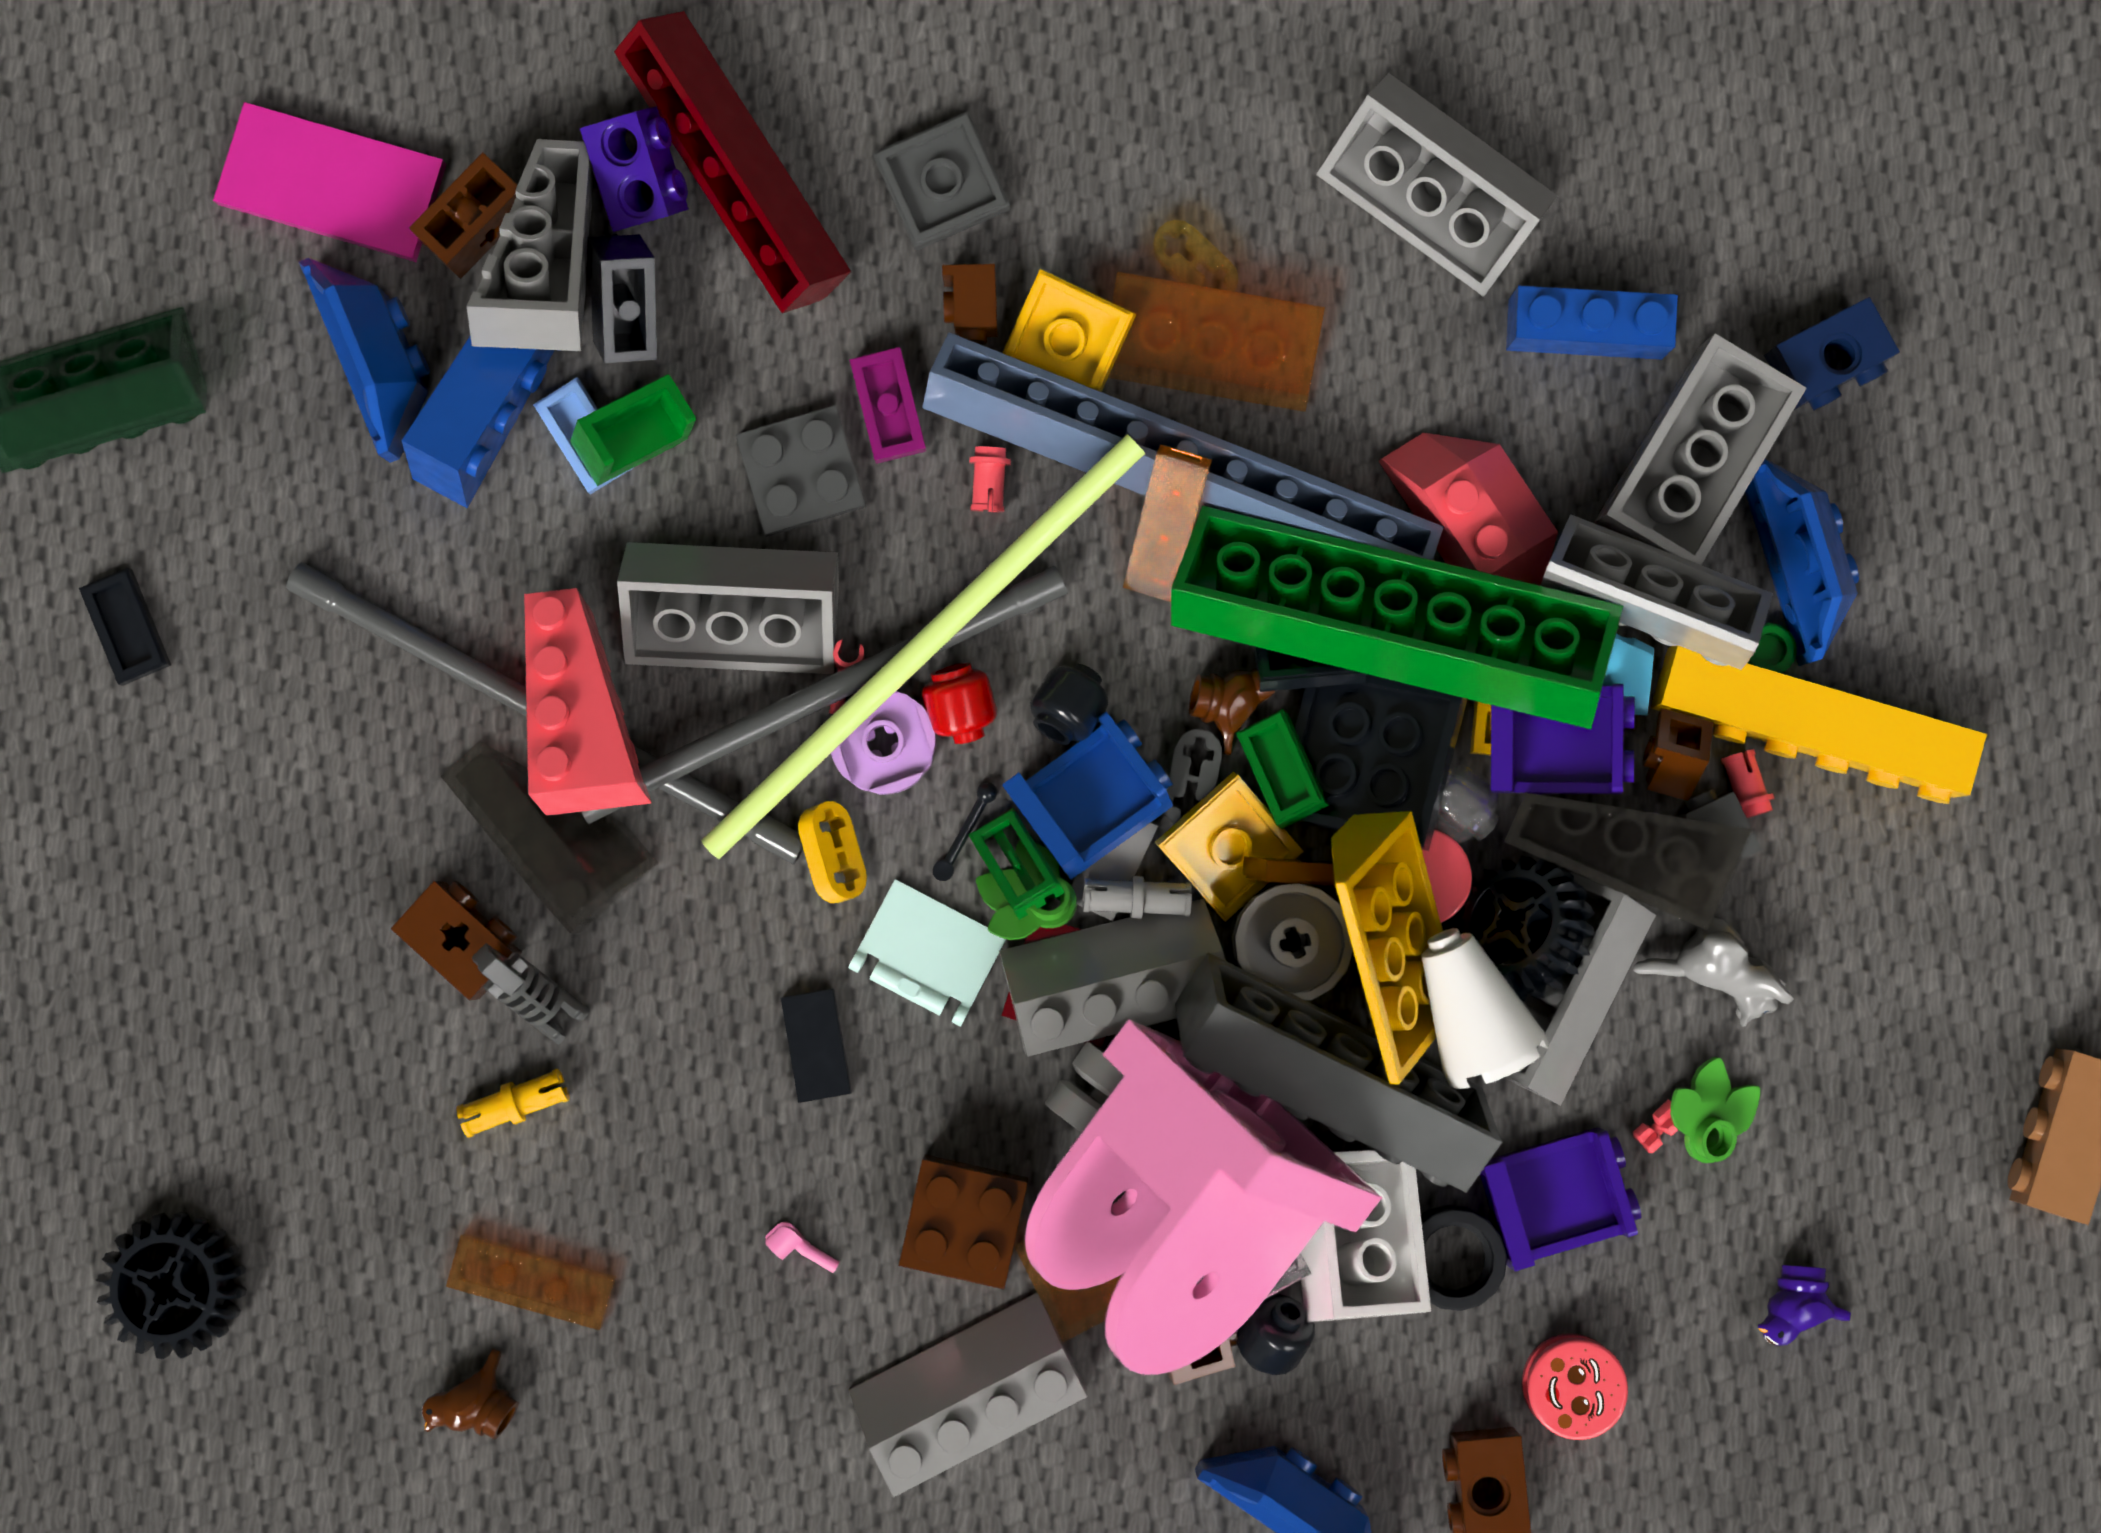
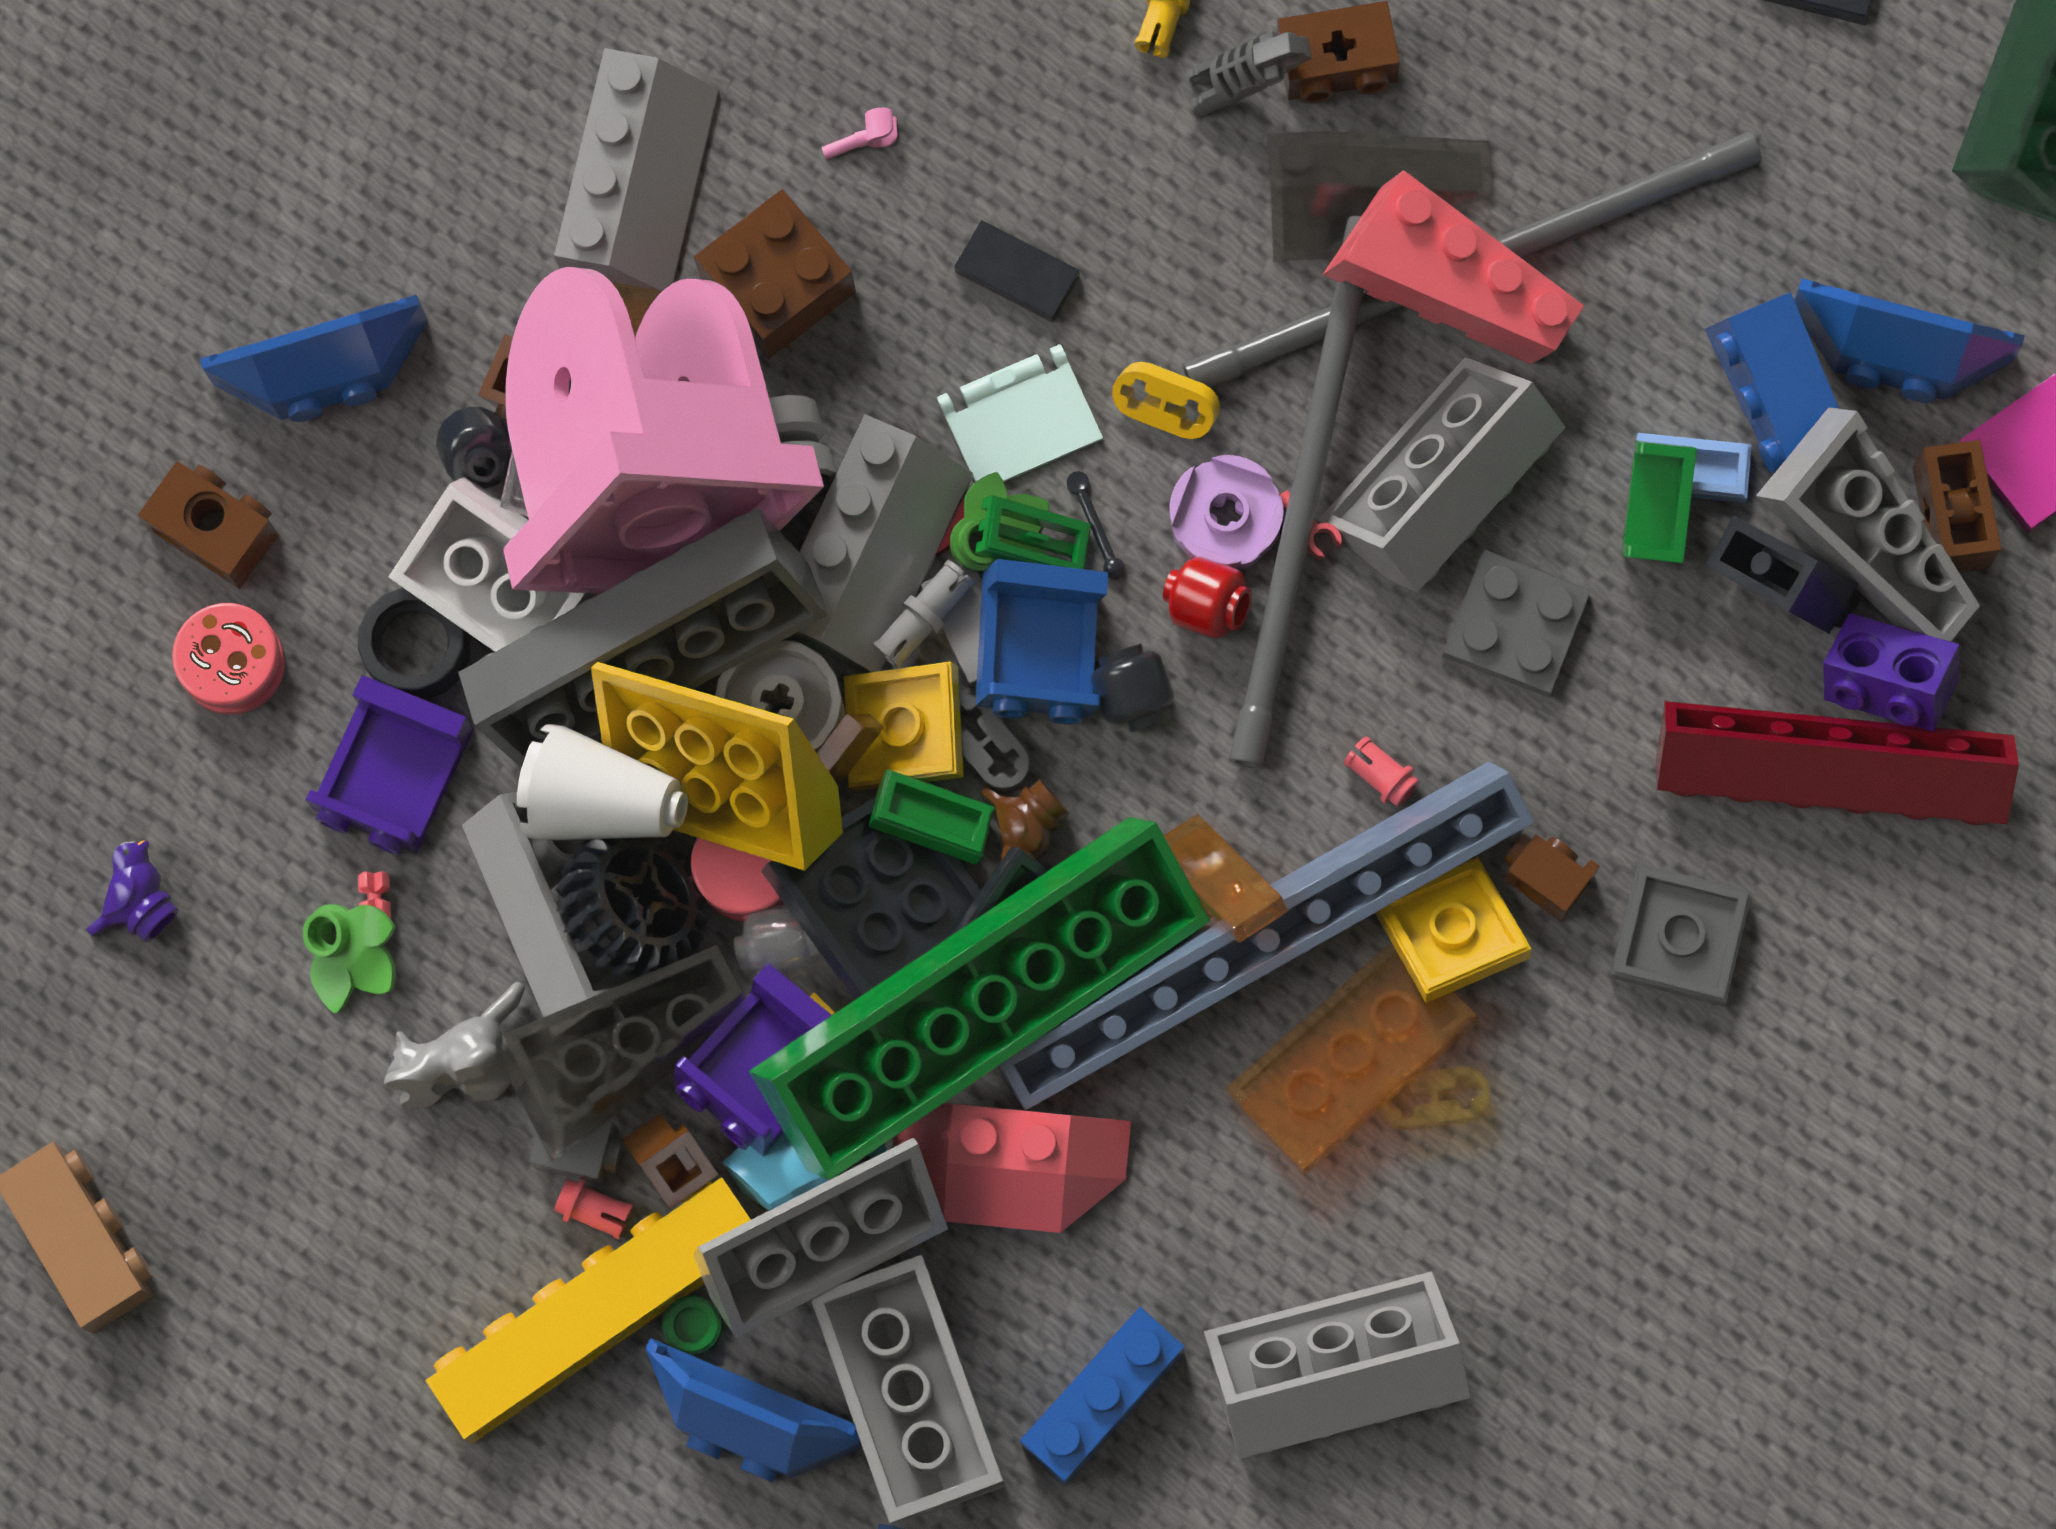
camera: 135 degrees right, 10 degrees down
(887, 405) = (1514, 736): magenta plate -> none
(923, 646) = (1276, 598): yellowish green piece -> none

